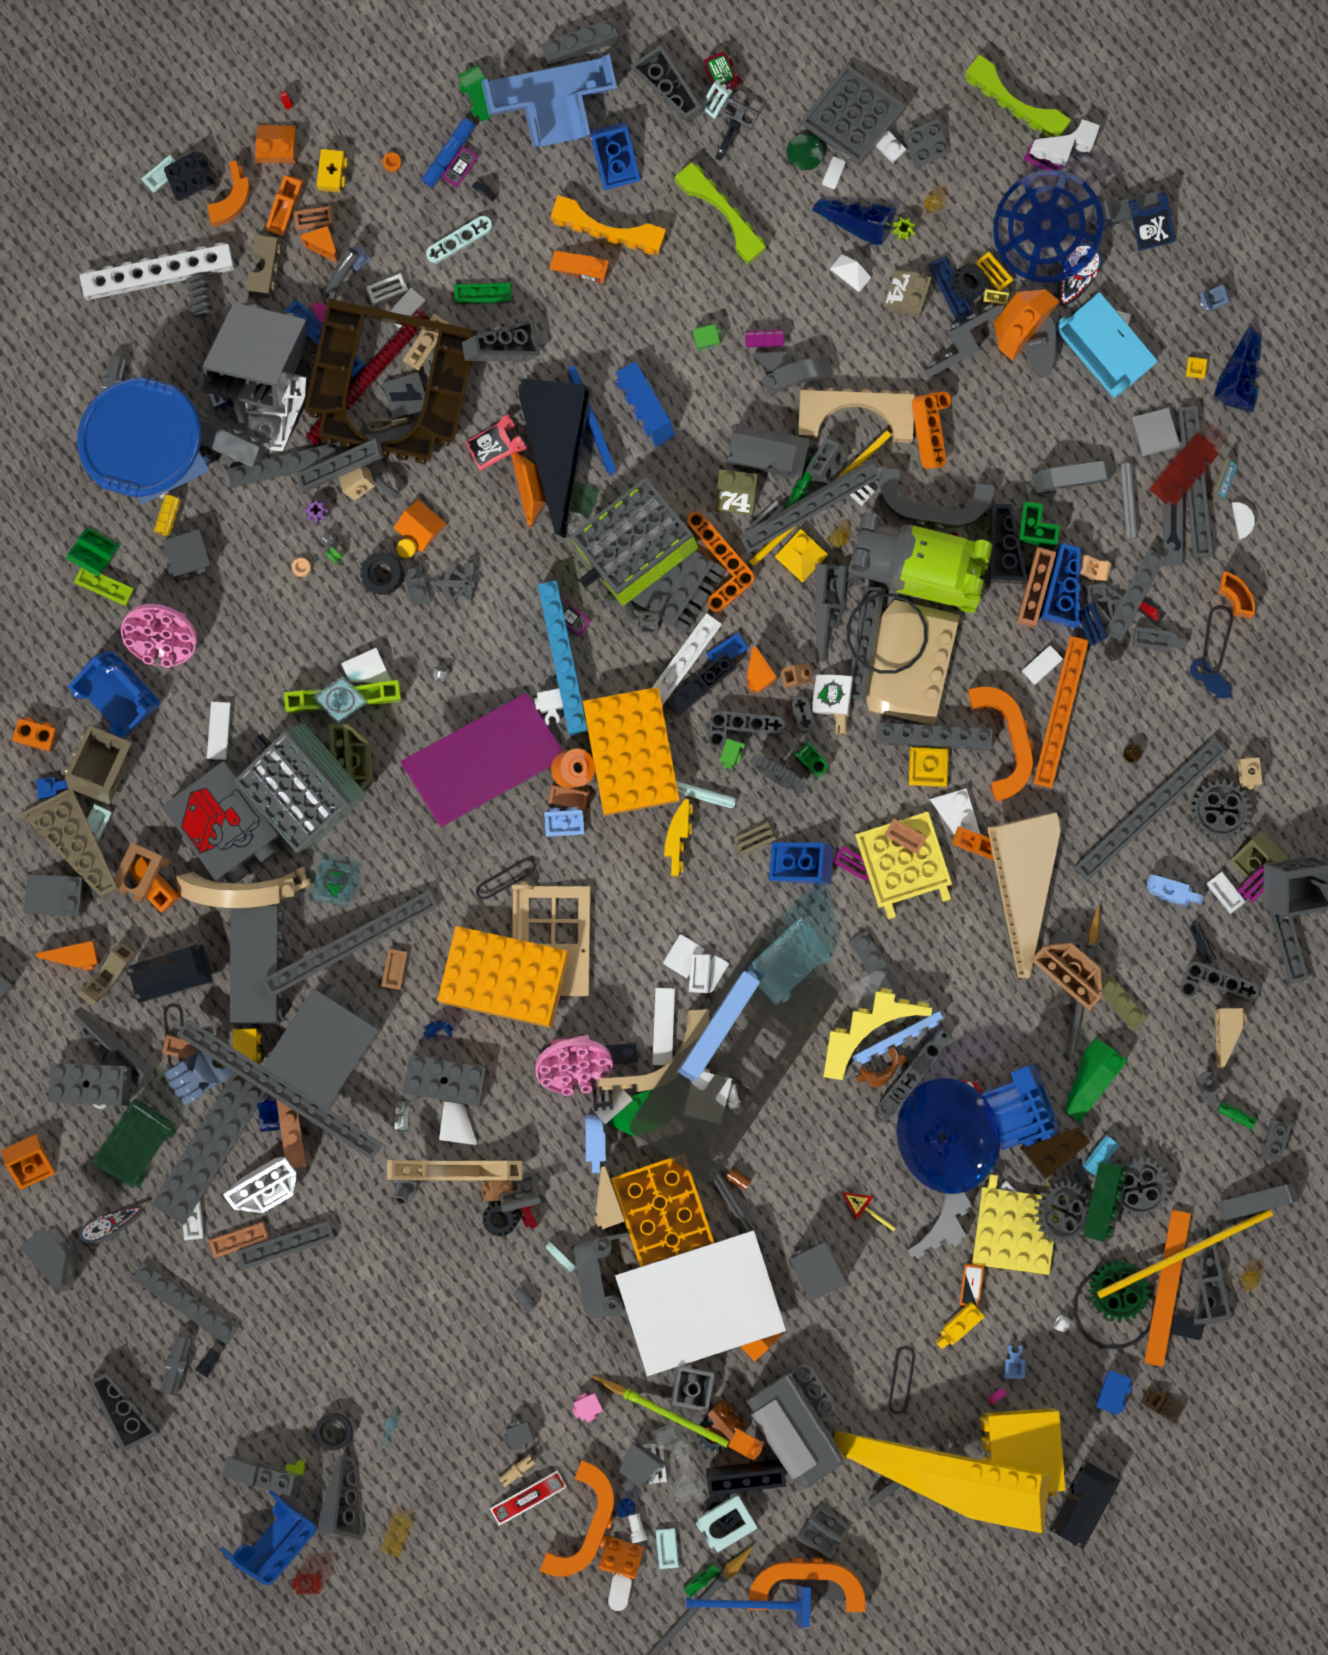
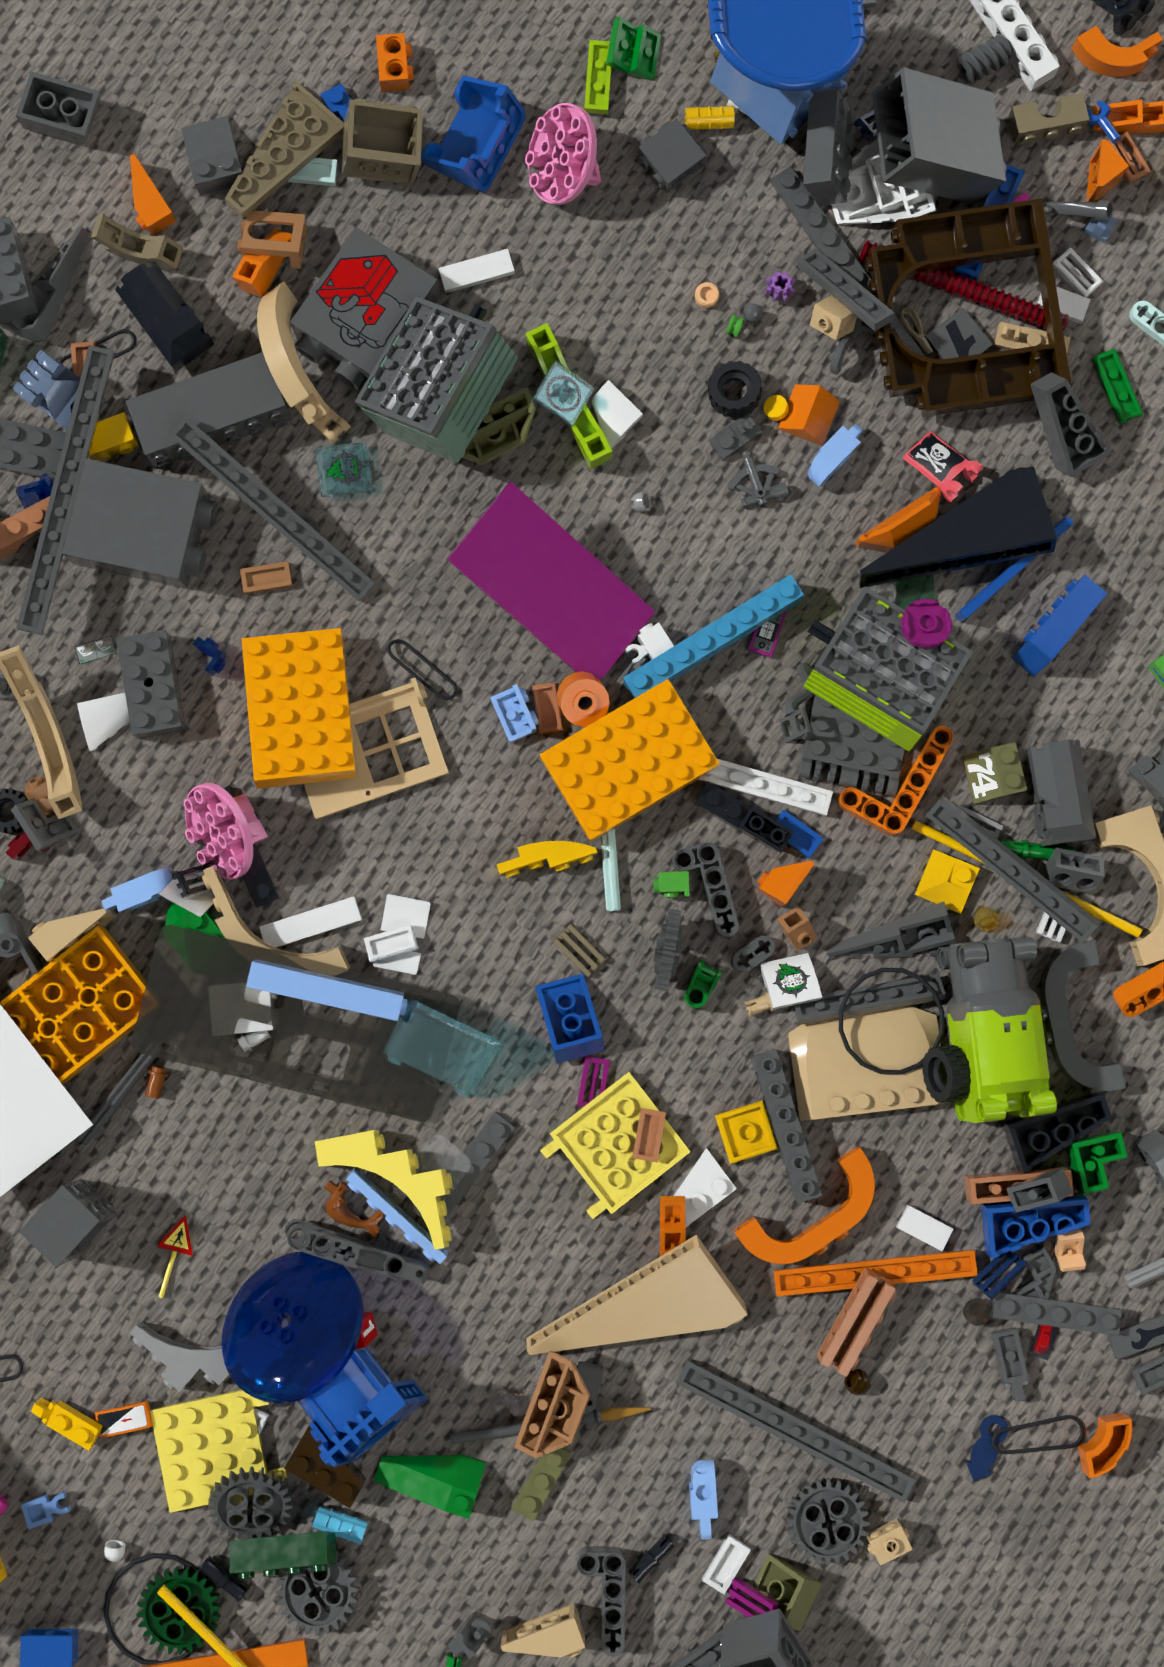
camera: 65 degrees right, 0 degrees up
(281, 227) = (1102, 120): none -> blue bar
(458, 519) = (834, 454): none -> light blue piece
(614, 502) = (926, 624): none -> magenta tile
(929, 606) = (958, 1074): none -> black tyre
(1043, 574) = (1040, 1190): none -> dark grey slope
(1089, 738) = (856, 1321): none -> nougat brick
(1109, 1252) = (223, 1578): none -> black pin

